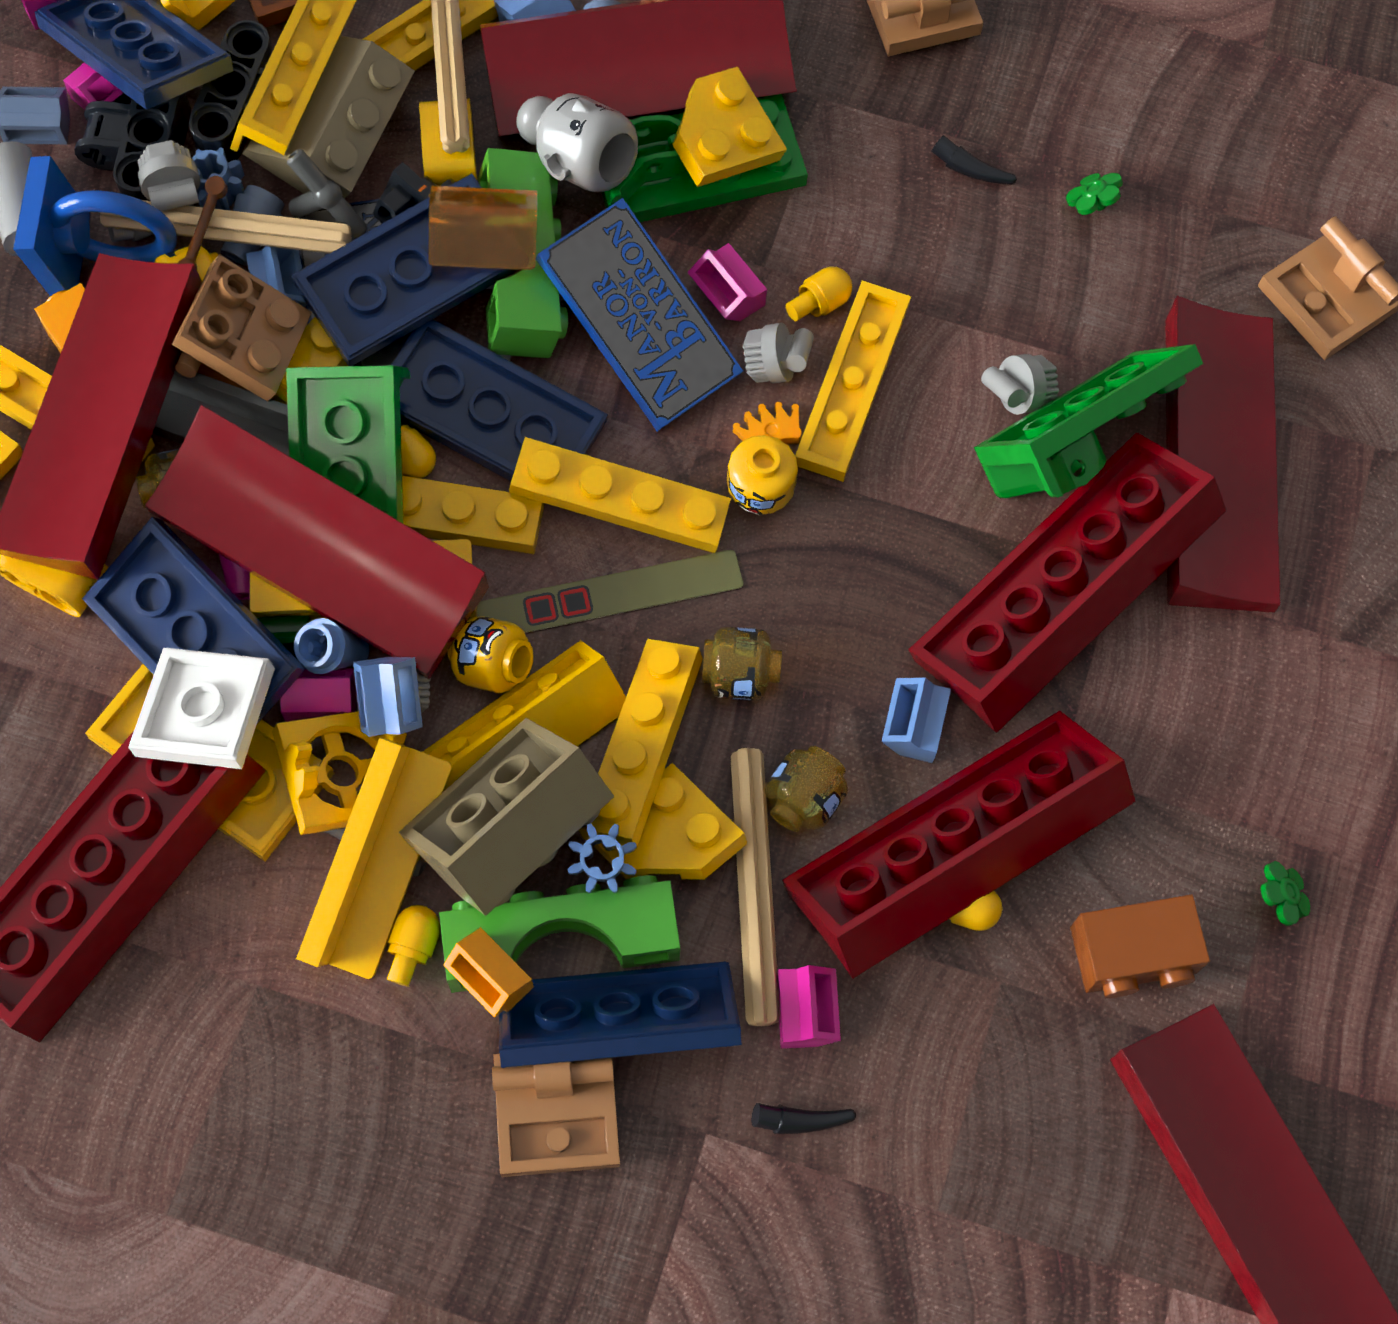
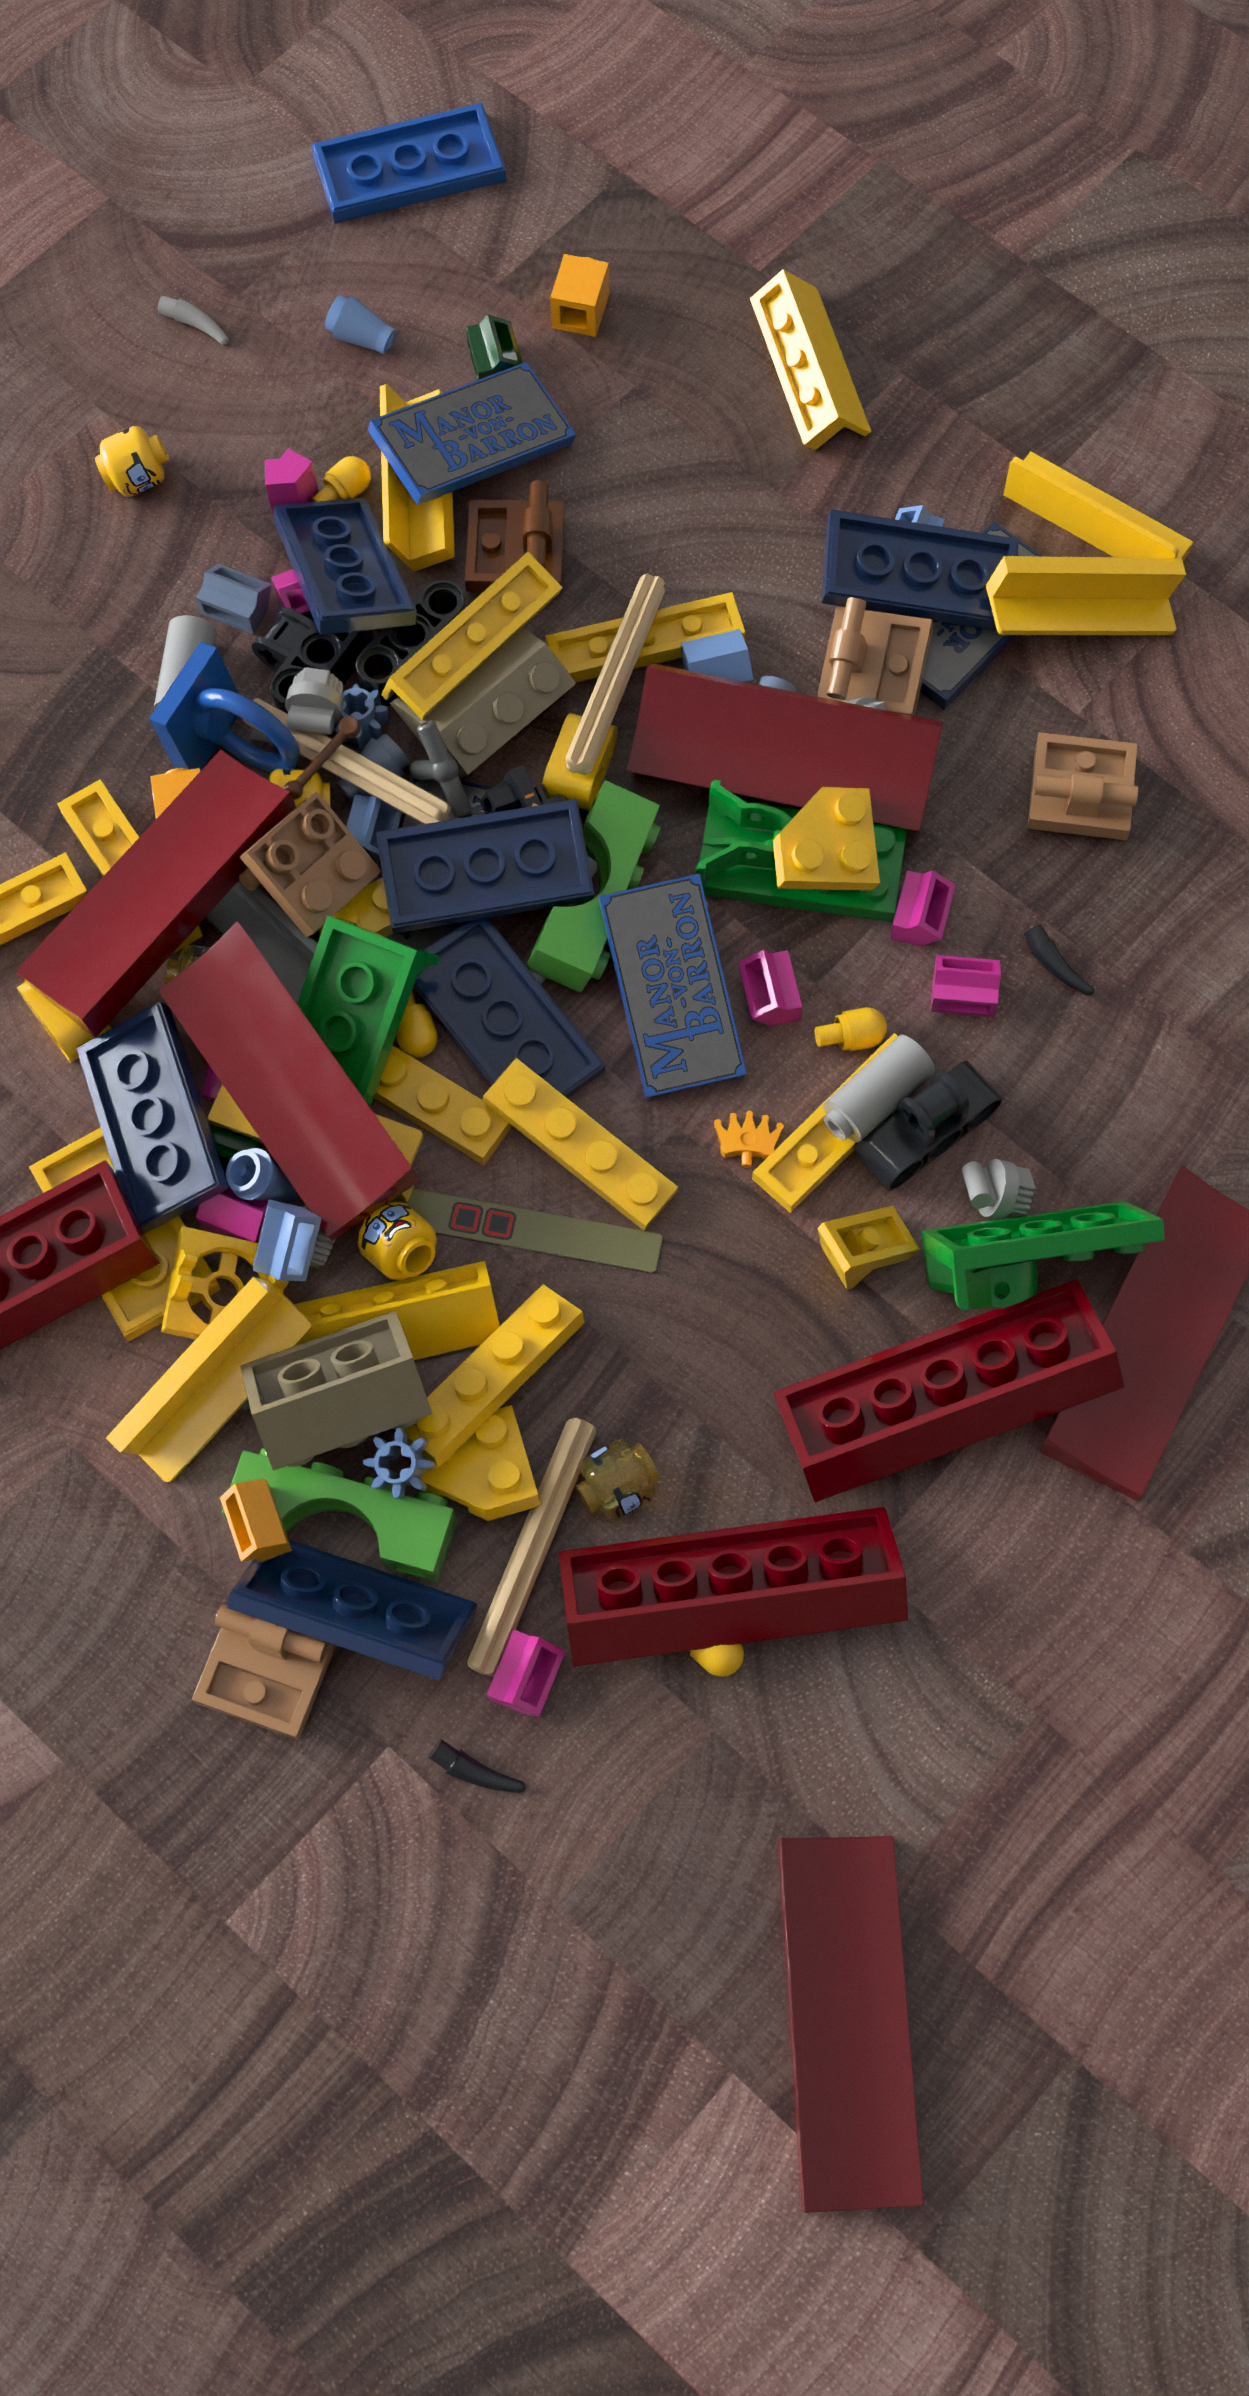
camera: 30 degrees right, 0 degrees up
(202, 708) = (124, 1187): white tile -> none
(412, 942) = (213, 1466): yellow cylinder -> none
(482, 227) = (560, 852): clear orange panel -> none
(580, 140) = (688, 805): light grey piece -> none
(740, 663) = (613, 1341): clear yellow head -> none
(762, 474) = (713, 1177): yellow head -> none
(775, 353) = (783, 1068): light grey piece -> none
(830, 161) = (922, 908): none -> dark pink piece
(877, 333) = (878, 1089): none -> light grey brick
(903, 215) = (965, 986): none -> dark pink piece
(916, 718) = (748, 1458): medium blue piece -> none
(926, 482) = (865, 1243): none -> yellow slope
(931, 352) = (928, 1125): none -> black piece
(1095, 193) = (1163, 1034): green plant -> none
(1140, 946) = (849, 1753): dark orange brick -> none
(1284, 891) = (1011, 1763): green plant -> none

